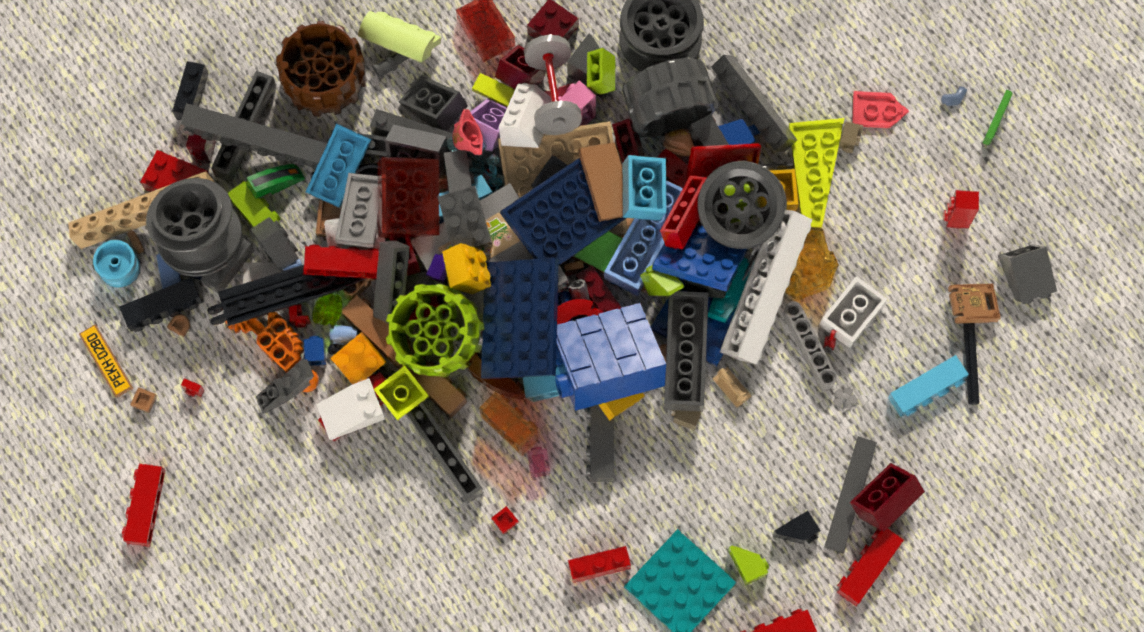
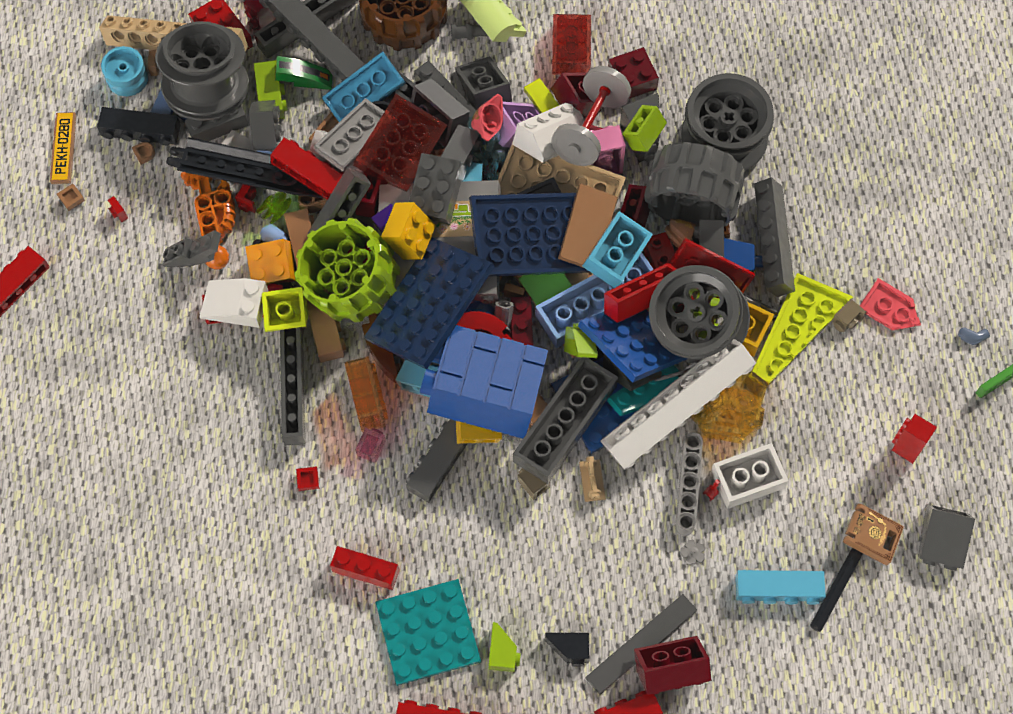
camera: 30 degrees right, 5 degrees down
(315, 351) = (240, 236): blue brick -> none

